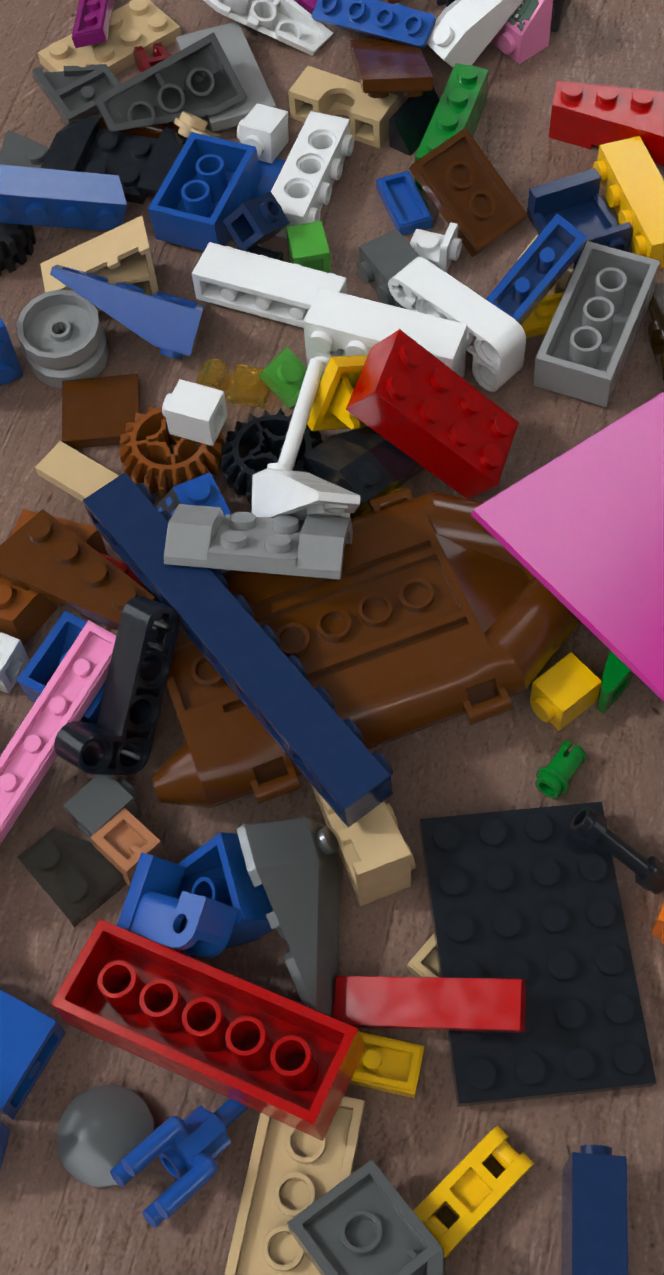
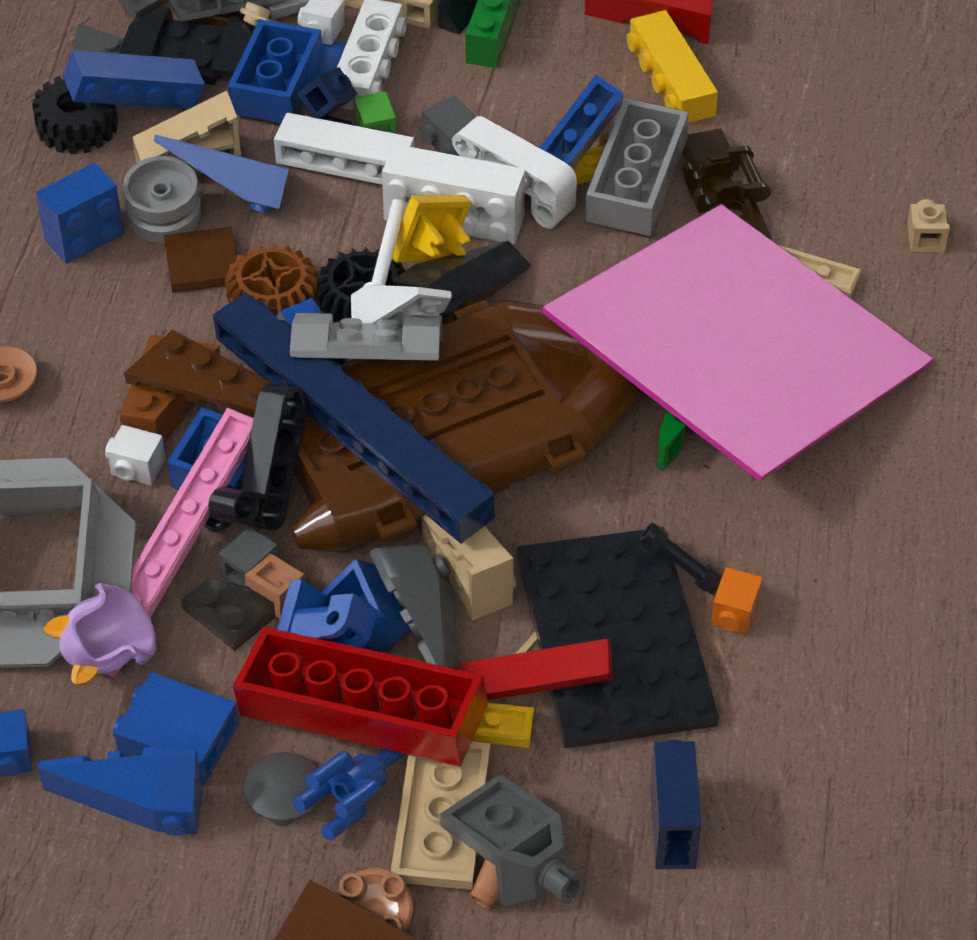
camera: 10 degrees left, 10 degrees down
(73, 471) = (186, 312): tan tile -> none
(195, 412) = (293, 250): white brick -> none
(242, 386) = (329, 232): clear yellow plate -> none
(285, 376) = (367, 223): bright green bracket -> none
(404, 203) = (457, 75): blue tile -> none
(433, 415) = (501, 241): red brick -> none
(437, 247) = (495, 111): white bracket -> none
(468, 191) = (516, 63): reddish brown tile -> none
(472, 1189) = (581, 797): yellow plate -> none
(555, 776) = (624, 516): green pin -> none
(564, 691) = (629, 452): yellow brick -> none
(580, 204) = (616, 66): dark blue panel -> none

